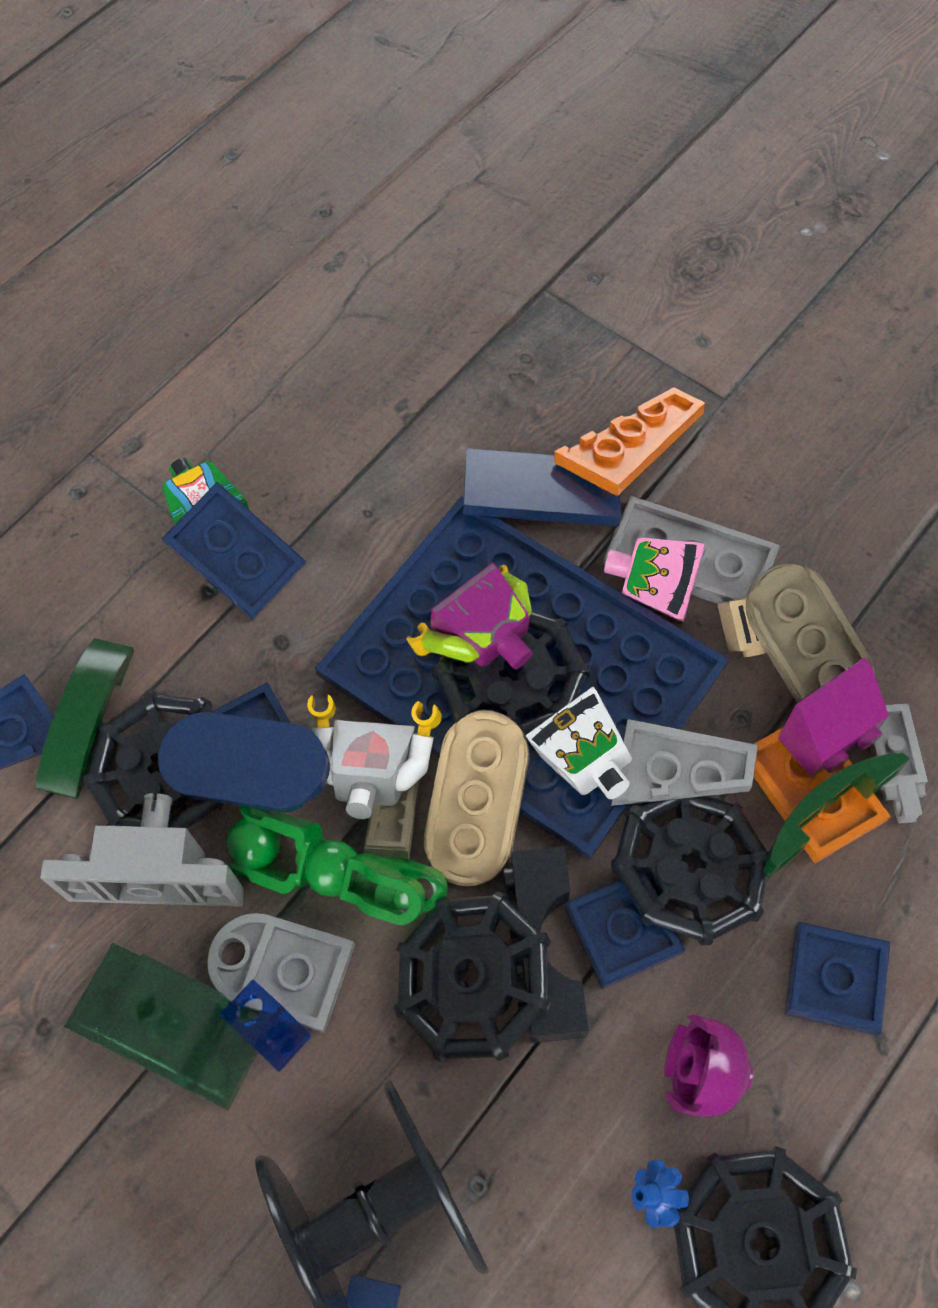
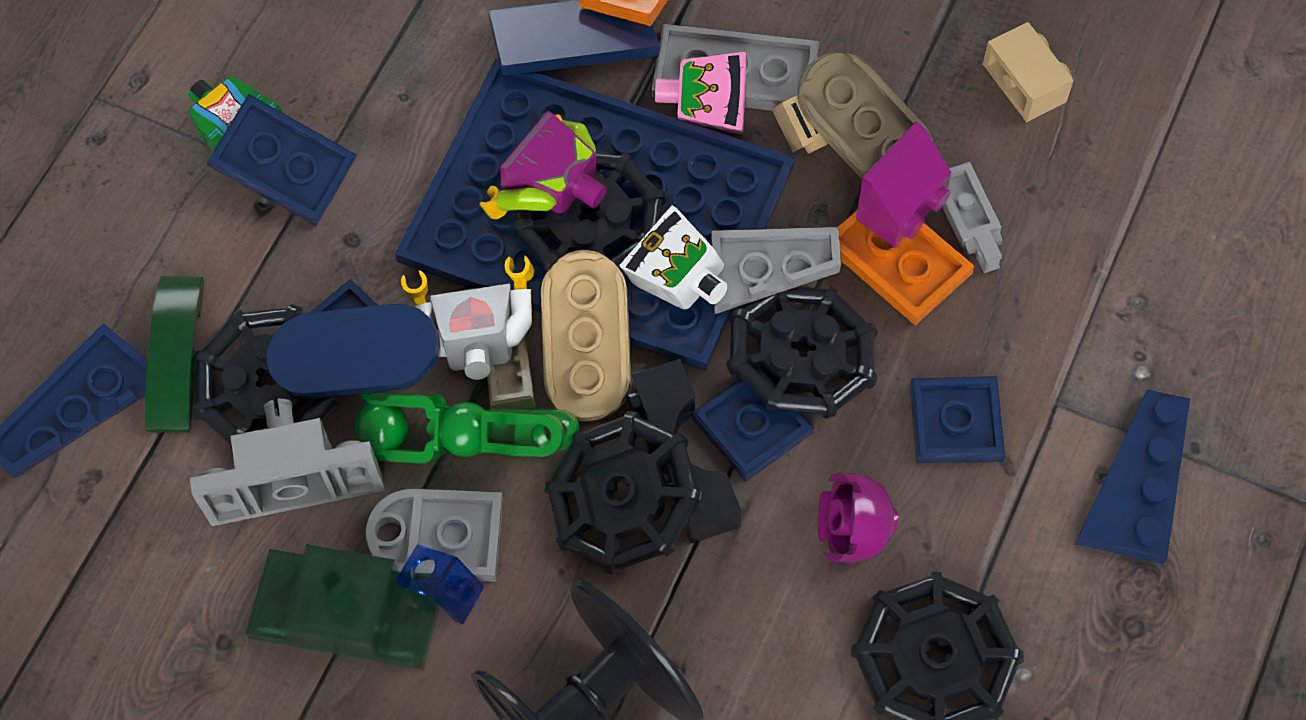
camera: 15 degrees left, 0 degrees up
(658, 1194) = (836, 635): blue plant -> none
(865, 776) = (942, 232): dark green slope -> none

